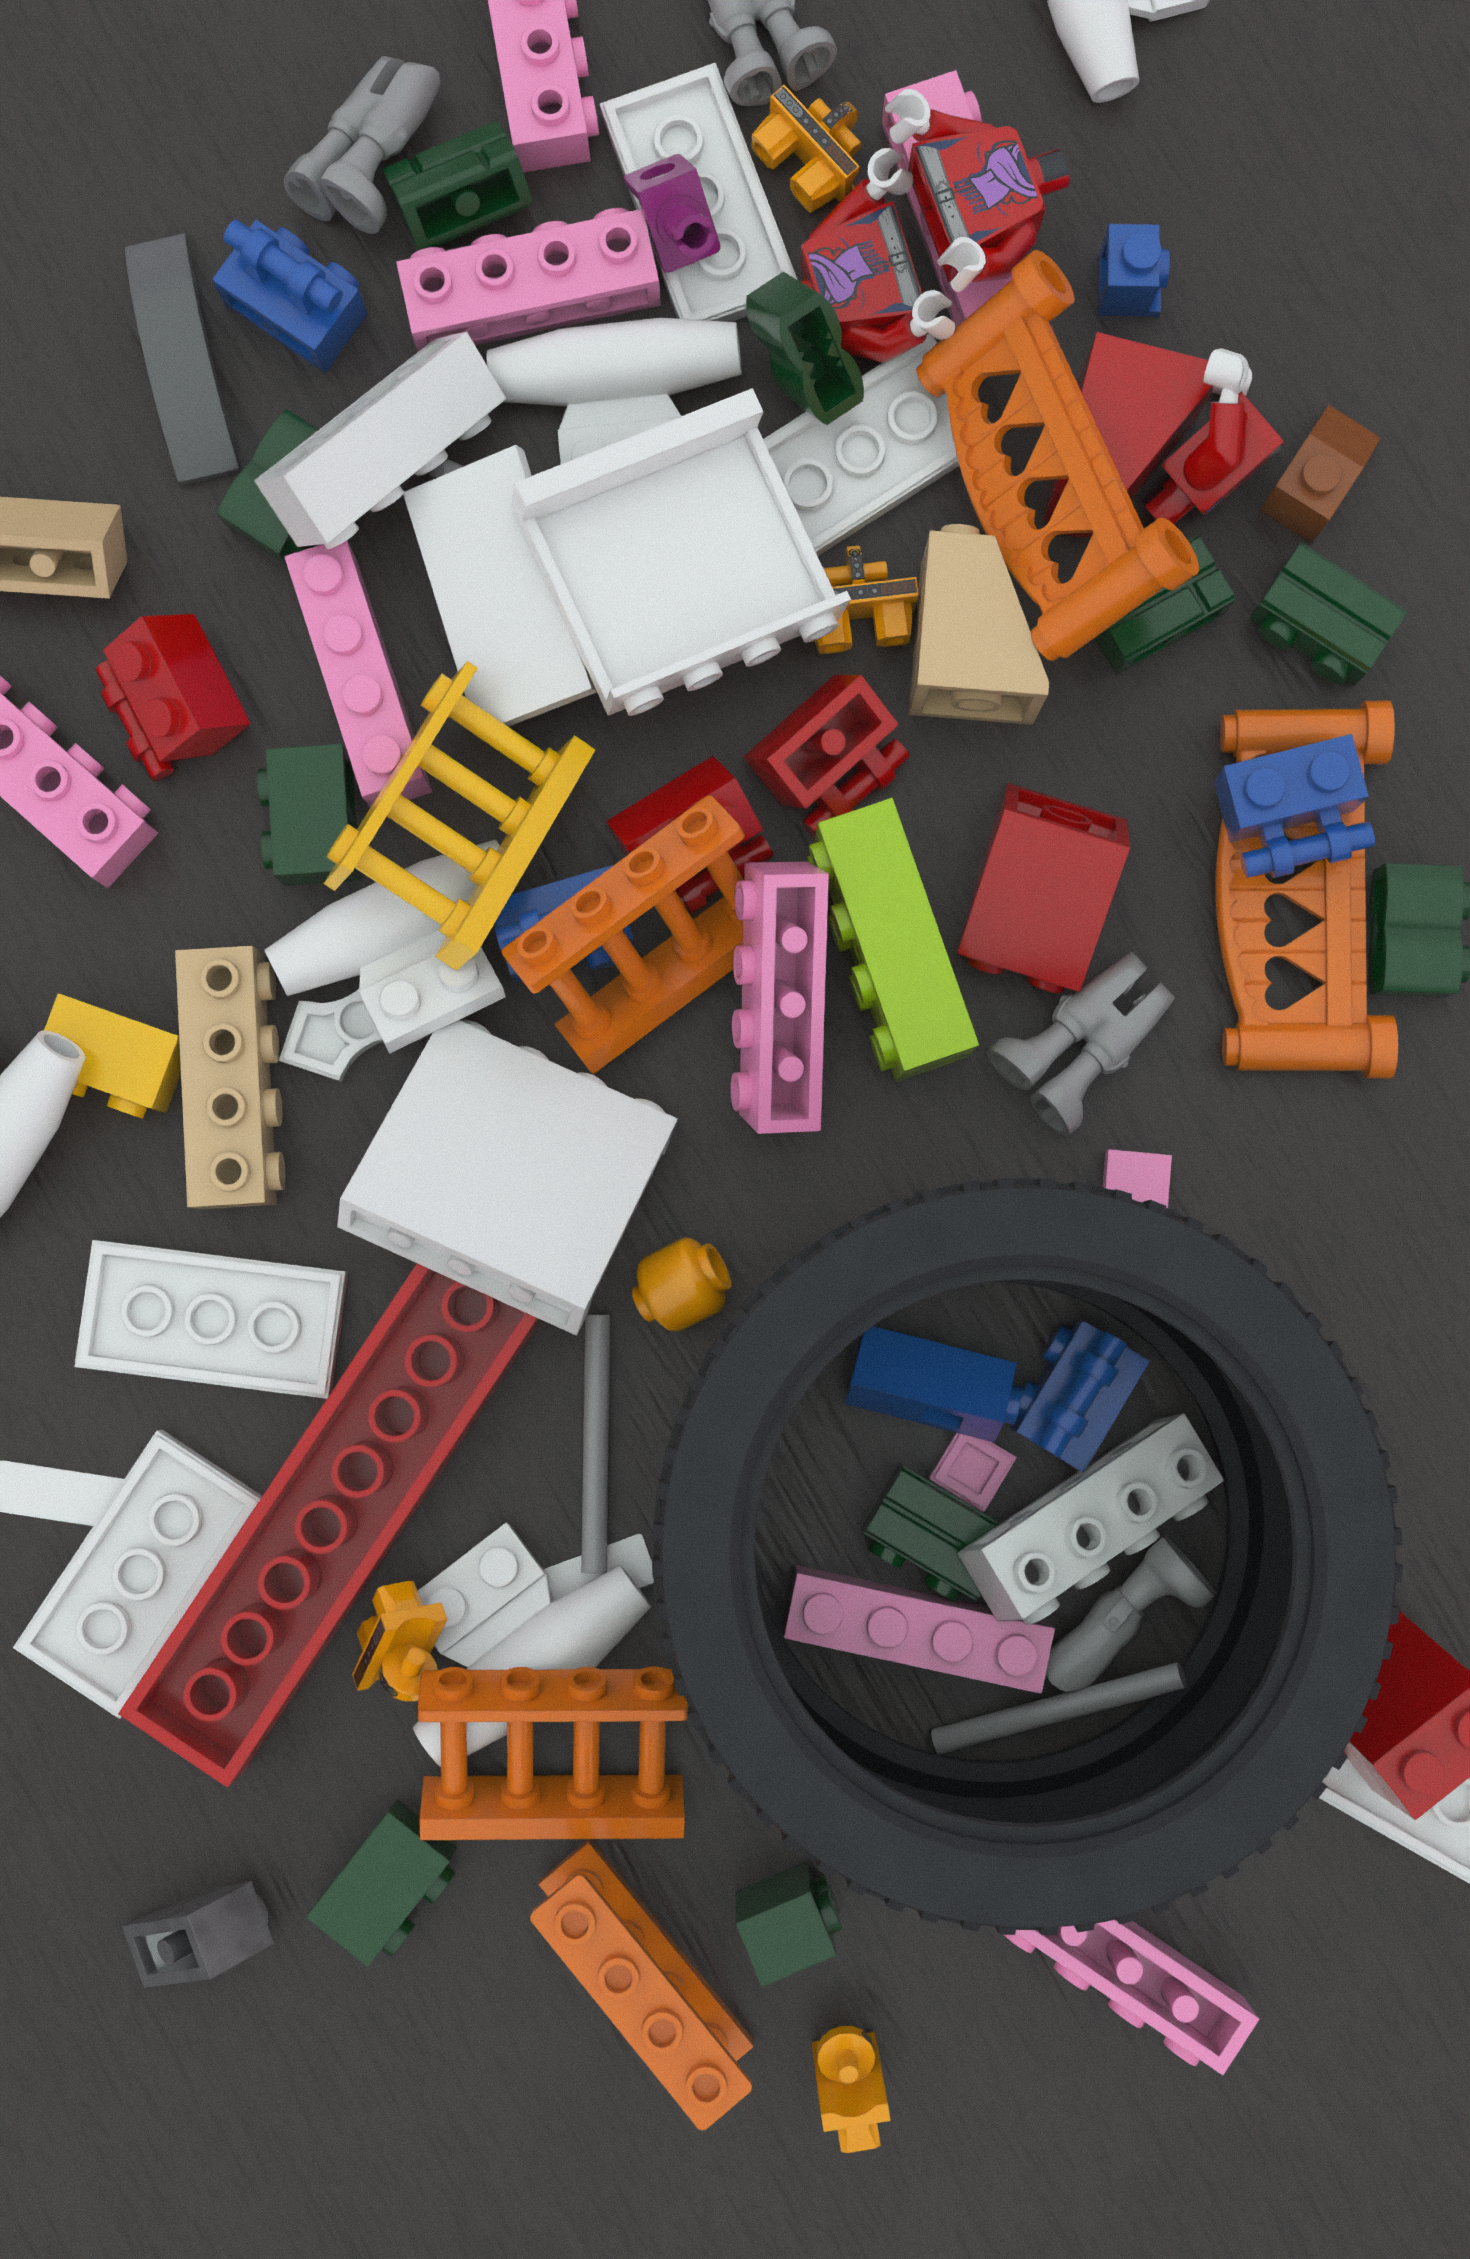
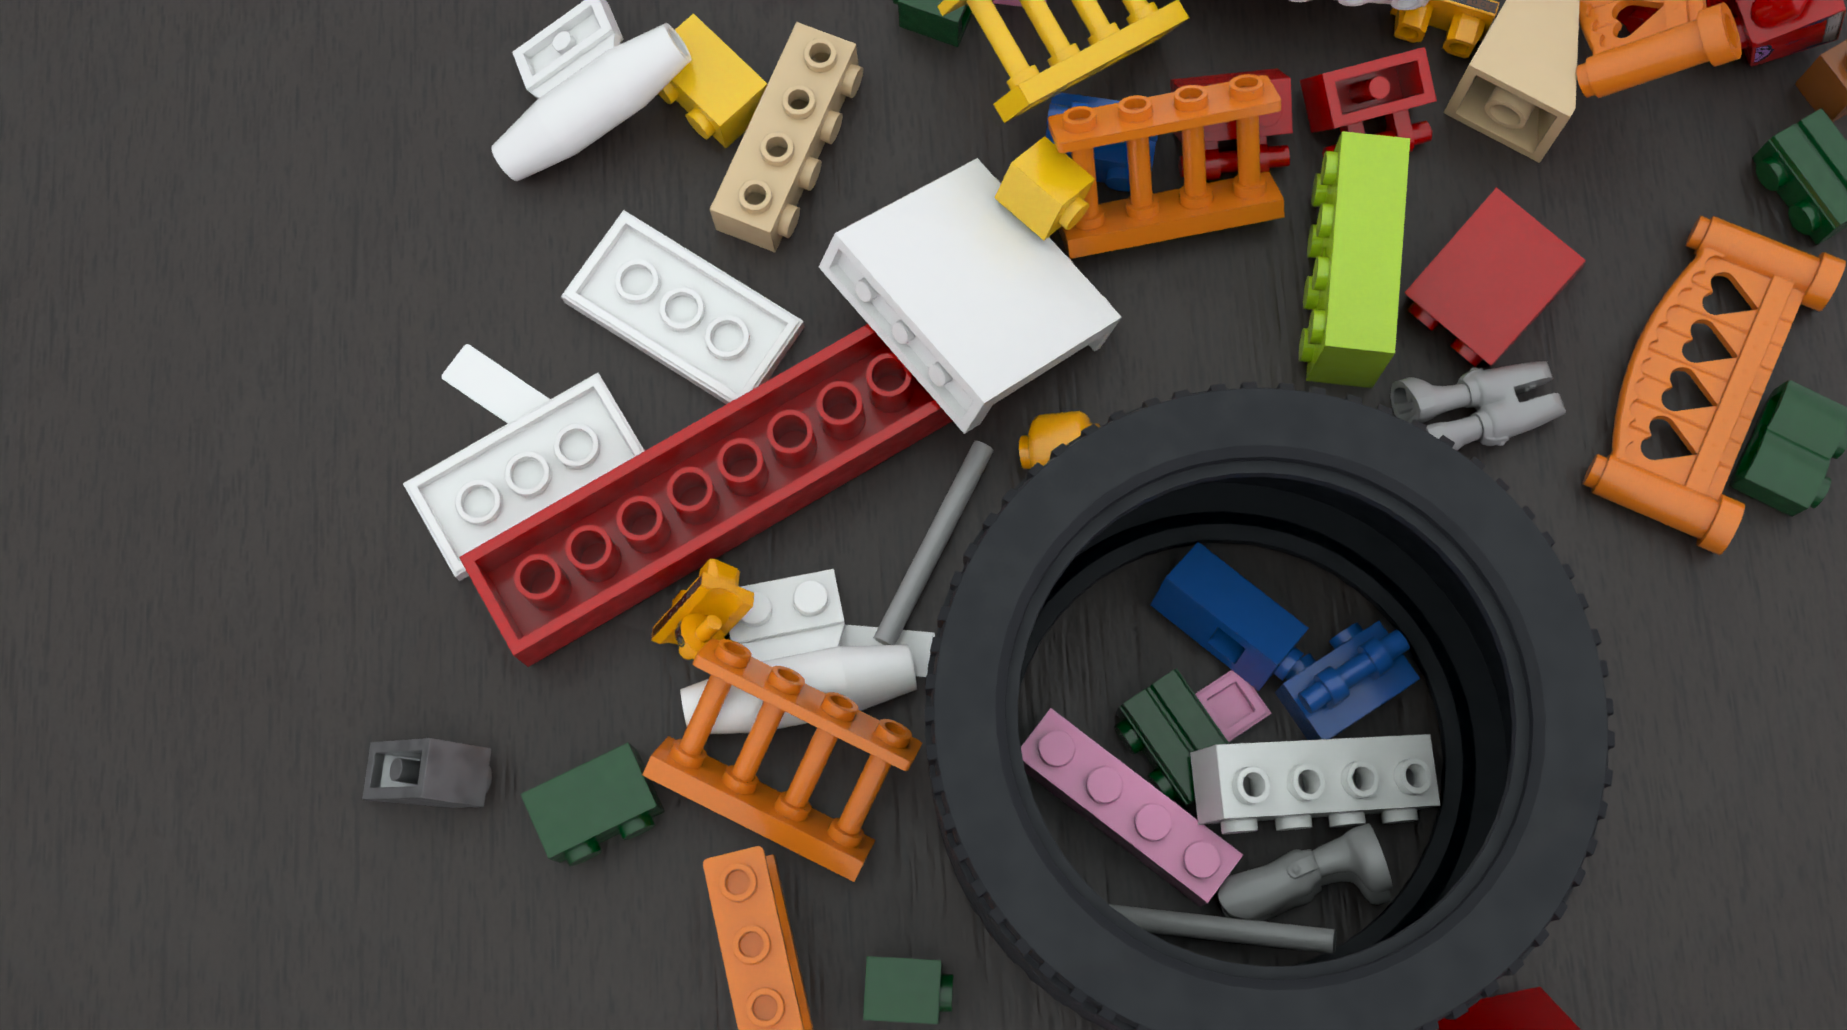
camera: 30 degrees right, 10 degrees down
(329, 1036) = (884, 145): white tile -> none
(393, 953) = (957, 92): white plate -> none
(535, 1028) = (1045, 189): none -> yellow brick
(781, 996) = (1251, 254): bright pink brick -> none
(1168, 615) = (1684, 111): dark green brick -> none
(1293, 790) = (1734, 294): blue brick -> none

